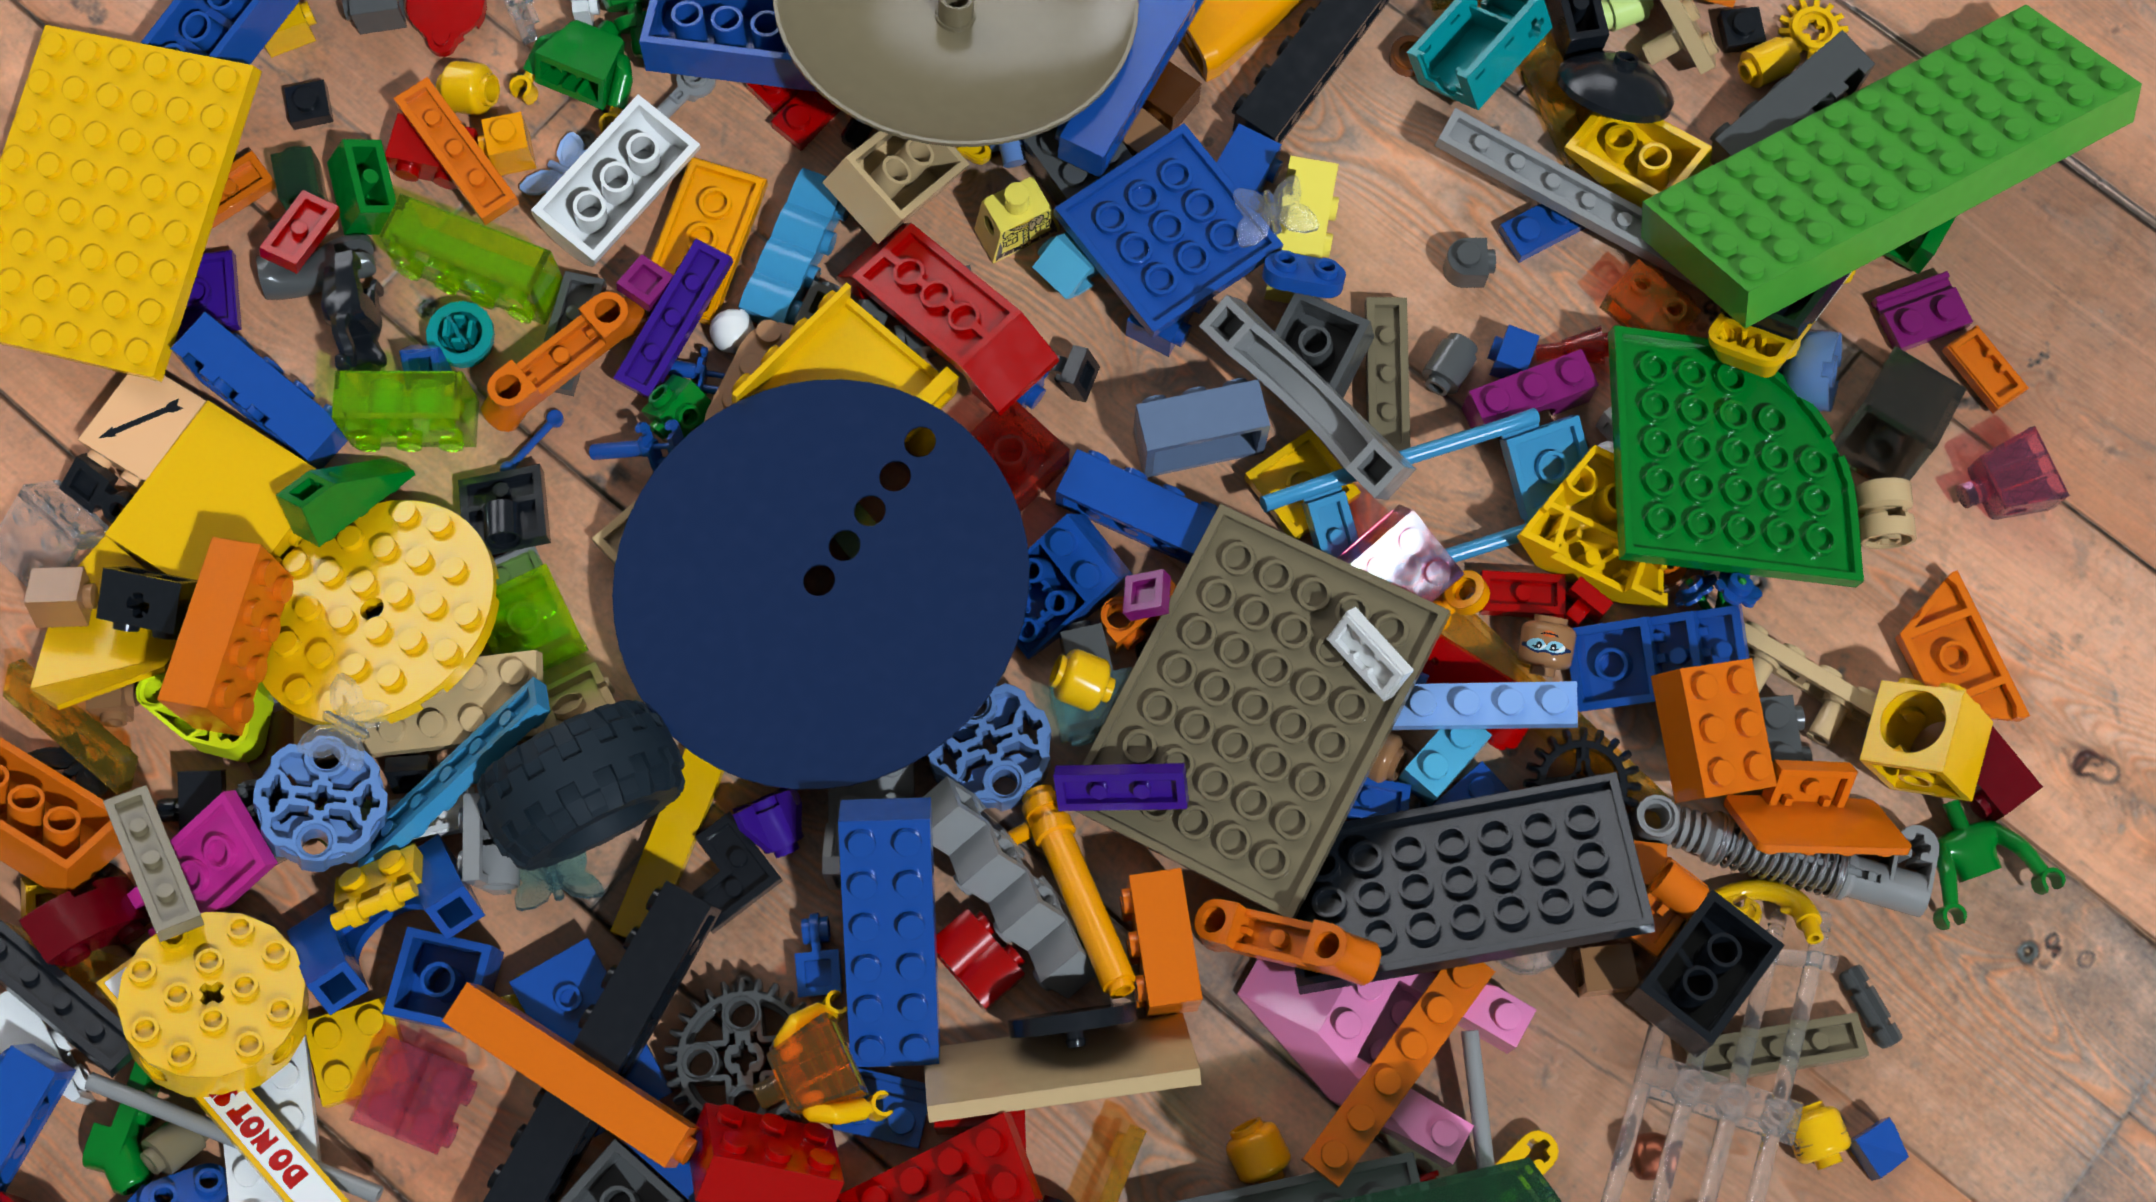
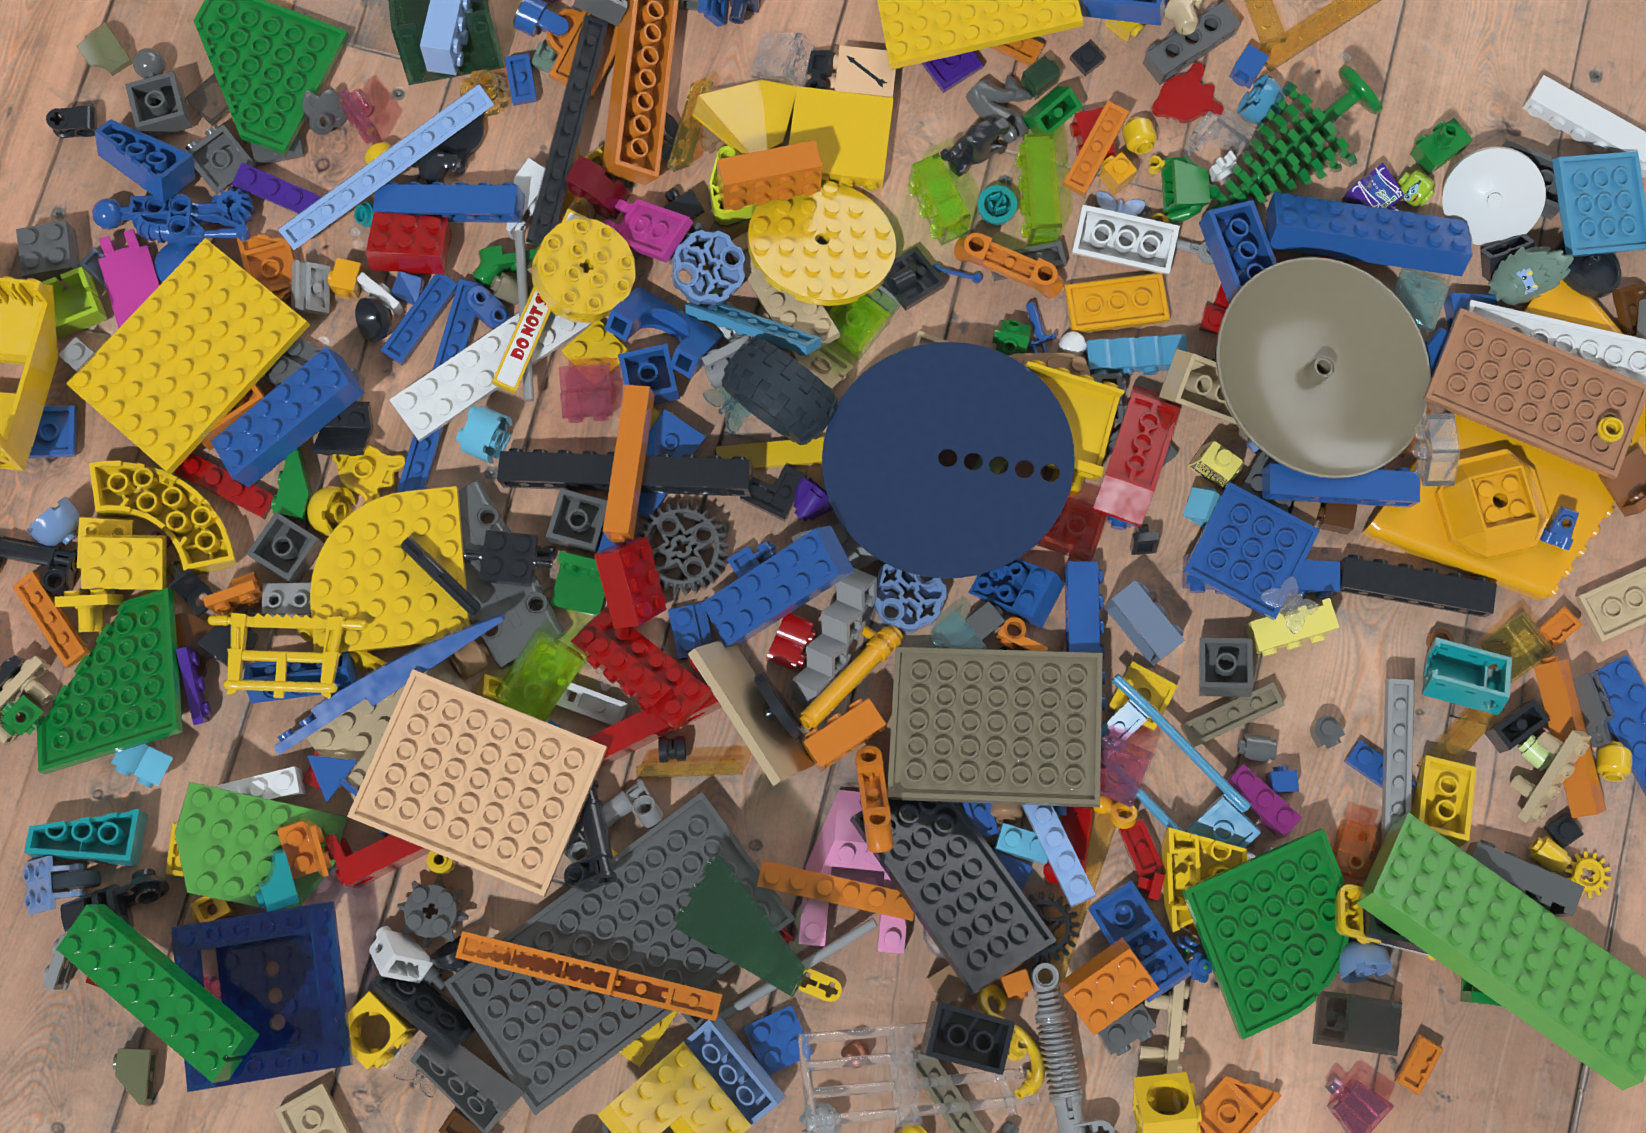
camera: 65 degrees right, 5 degrees up
(60, 597) = (753, 83): medium nougat brick -> none
(144, 599) = (771, 124): black brick -> none
(153, 863) = (638, 202): dark tan plate -> none
(260, 391) = (912, 120): blue wedge -> none
(299, 231) = (1009, 93): plate -> none
(334, 497) = (873, 188): green slope -> none
(347, 727) = (751, 259): clear piece -> none
(377, 887) = (679, 318): yellow plate -> none
(407, 771) = (748, 301): black plate -> none
(423, 358) = (971, 195): blue slope -> none
(644, 282) = (1073, 285): magenta plate -> none
(645, 445) = (982, 331): blue piece -> none
(673, 319) = (1061, 310): dark purple plate -> none
(817, 1069) = (691, 585): clear orange torso -> none
(1081, 680) = (965, 624): yellow head -> none
(1121, 787) = (916, 673): dark purple plate -> none
(1146, 595) = (1030, 637): magenta plate -> none
(1258, 1151) = (758, 837): light orange head -> none
(1303, 274) = (1263, 638): blue plate -> none
(1306, 393) = (1175, 708): light grey arch -> none
(1369, 654) = (1052, 771): white plate -> none
(1546, 645) = (1115, 873): medium nougat head -> none
(1591, 341) = (1309, 820): clear red cone -> none
(1616, 86) = (1479, 769): black dish -> none
(1672, 898) = (996, 1001): orange plate -> none
(1814, 815) = (1089, 1066): orange bracket -> none
(1886, 513) = (1303, 1034): tan wheel -> none
(1922, 312) = (1436, 1013): magenta plate -> none

